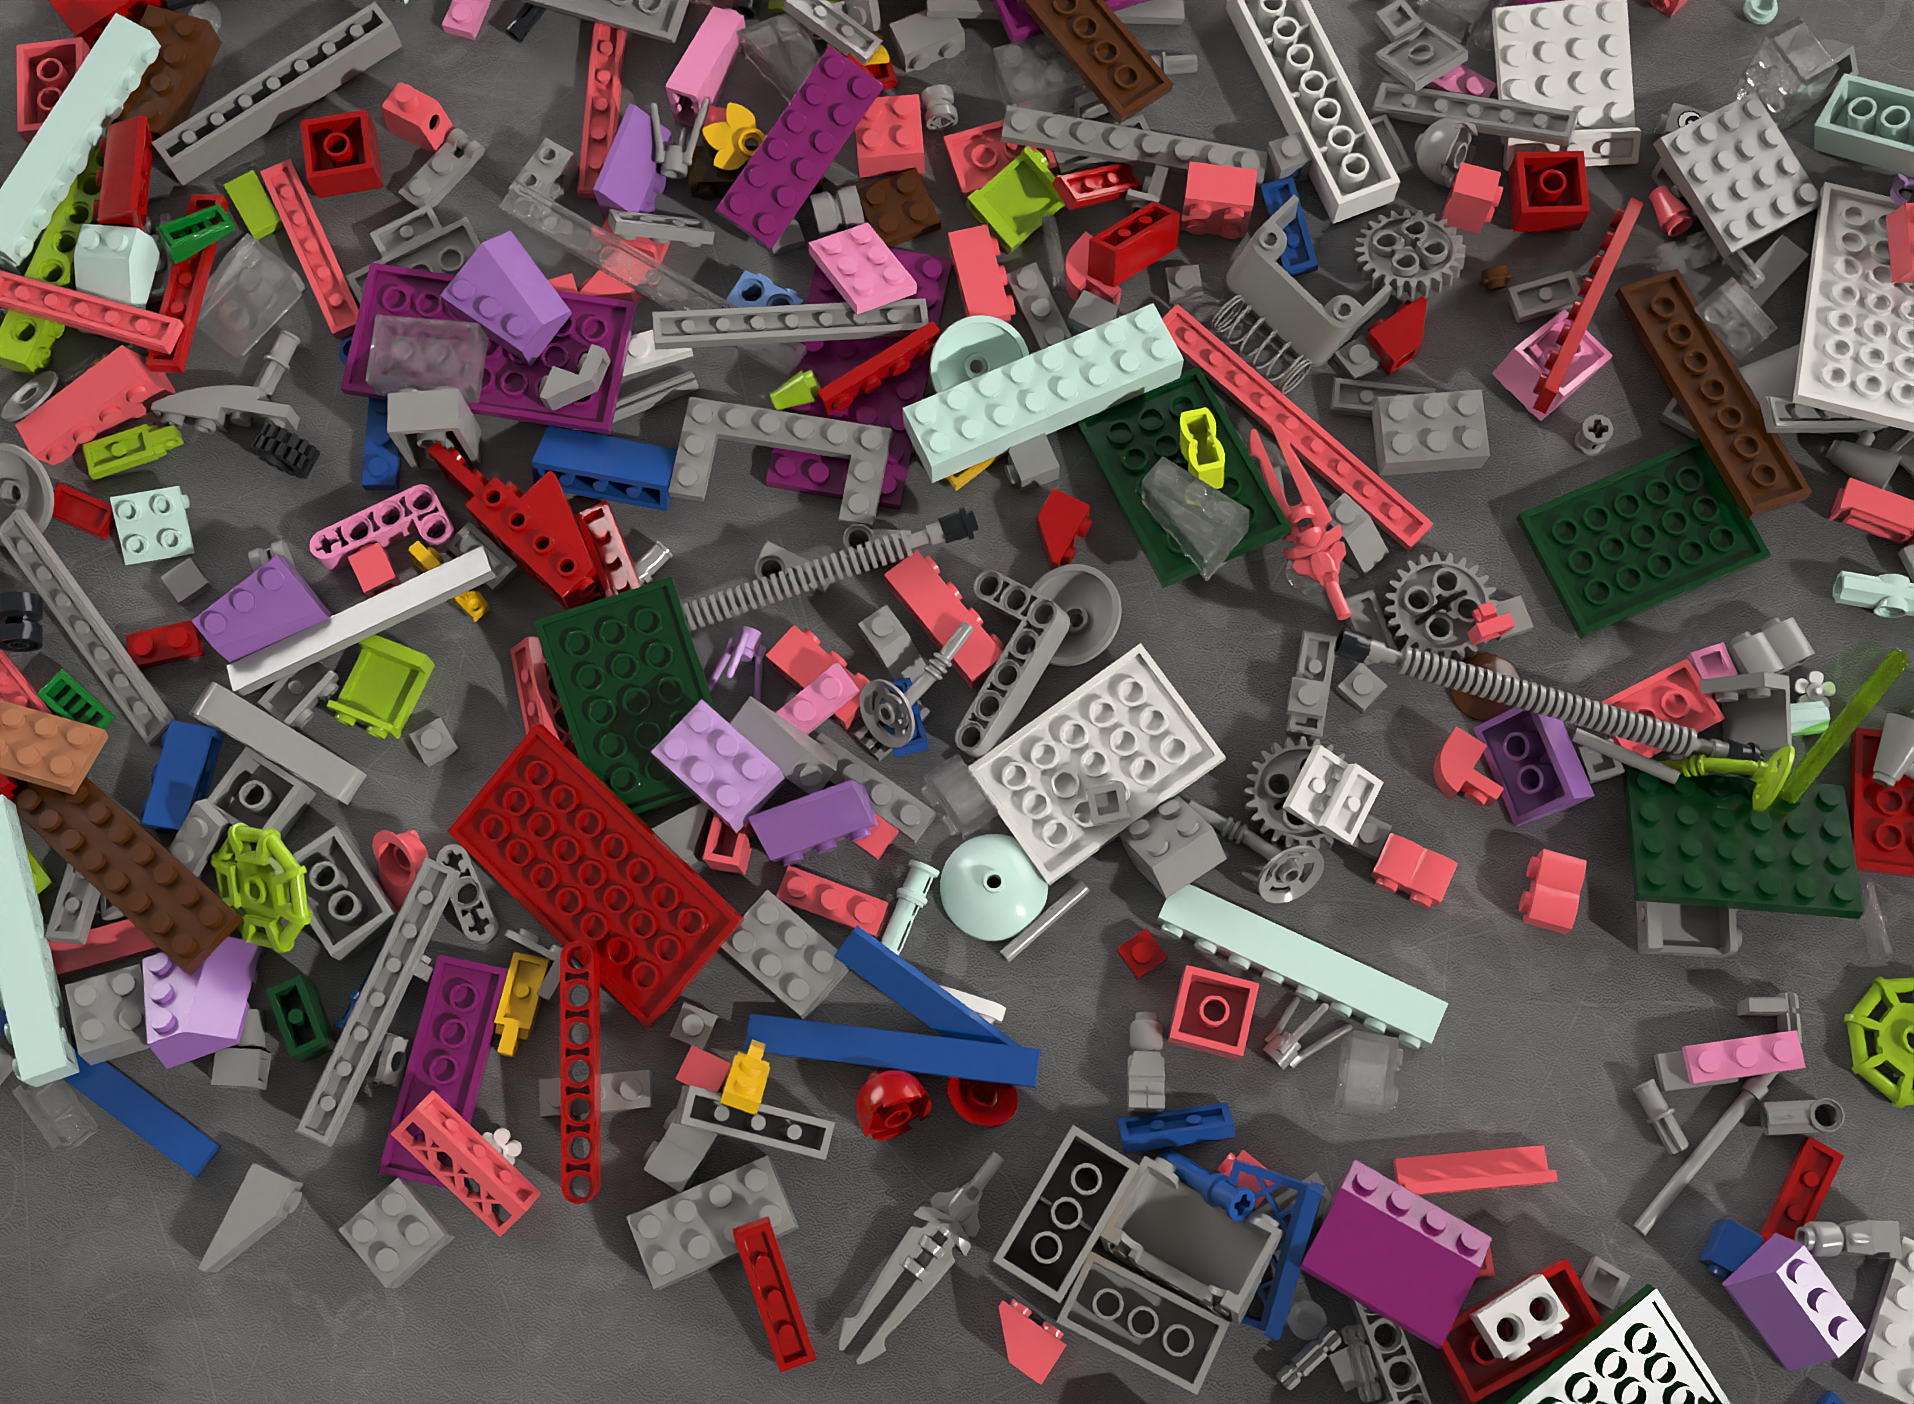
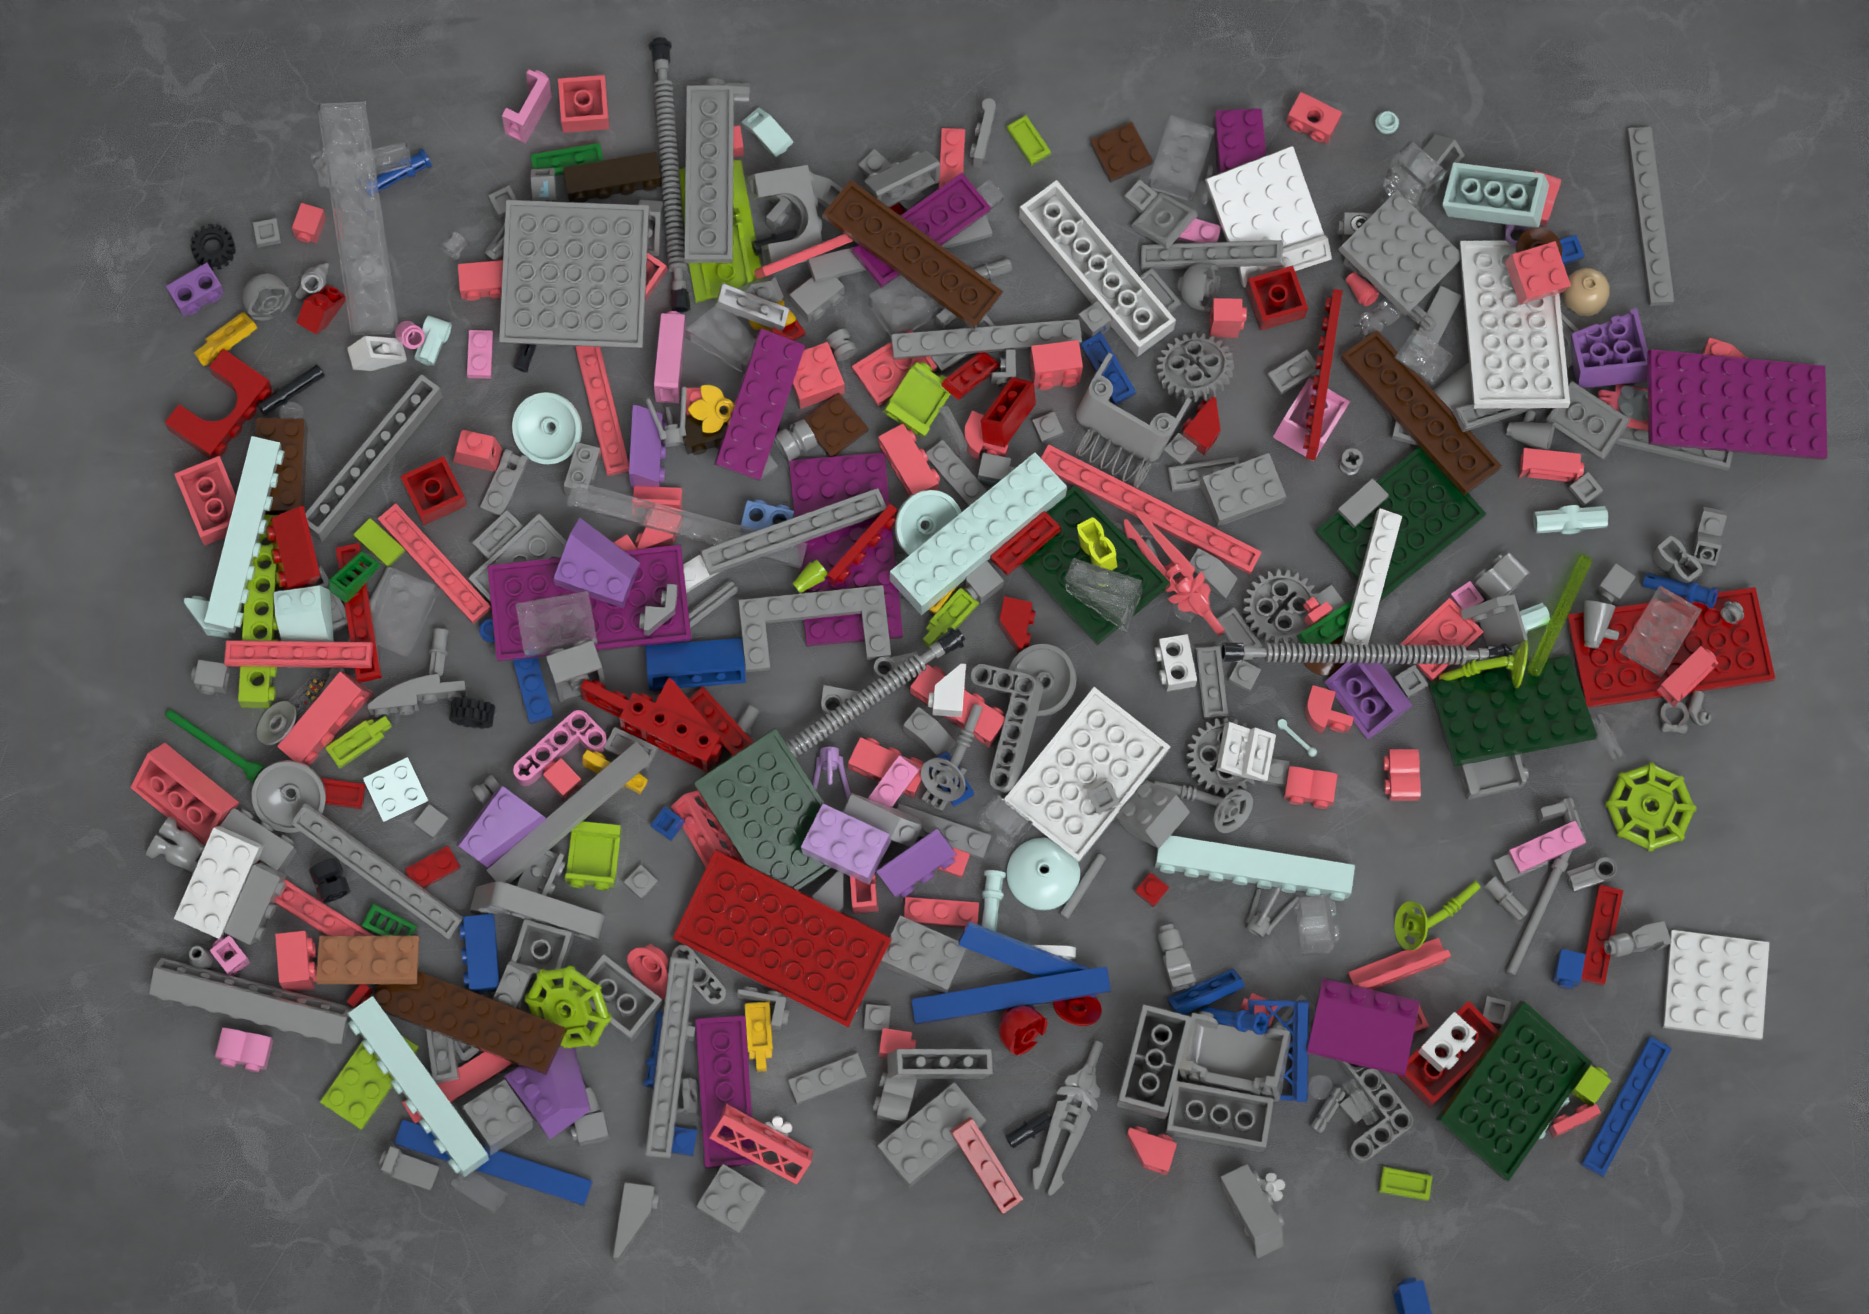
camera: 25 degrees left, 0 degrees up
(301, 1018) = (622, 1085): dark green brick -> none
(364, 1124) = (684, 1141): none -> blue plate
(495, 671) = (667, 823): none -> blue plate
(503, 107) = (533, 430): none -> light aqua dish
(591, 1087) = (809, 1054): red beam -> none
(660, 228) = (678, 485): light grey plate -> none
(747, 1079) = (928, 1037): yellow hinge -> none
(858, 1255) = (1028, 1129): none -> black axle
(862, 268) = (828, 478): bright pink plate -> none
(933, 597) = (949, 694): none -> white slope
(976, 493) = (950, 615): none -> lime hinge
(1105, 423) = (1025, 543): none -> red plate
(1212, 1013) = (1208, 913): coral brick -> none
(1275, 644) = (1182, 662): none -> white brick
(1307, 698) = (1211, 692): light grey plate -> none
(1396, 771) = (1282, 724): none -> light aqua hinge
(1496, 277) = (1257, 368): reddish brown plate -> none
(1509, 650) = (1328, 628): none -> green plate
(1519, 1121) = (1417, 925): none -> lime dish
(1583, 599) = (1372, 578): none -> white plate
(1596, 494) = (1363, 503): none -> light grey tile
(1625, 756) = (1425, 674): light grey bar -> none
(1793, 1304) = (1612, 989): medium lavender slope -> none
(1814, 689) = (1536, 595): white plant -> none

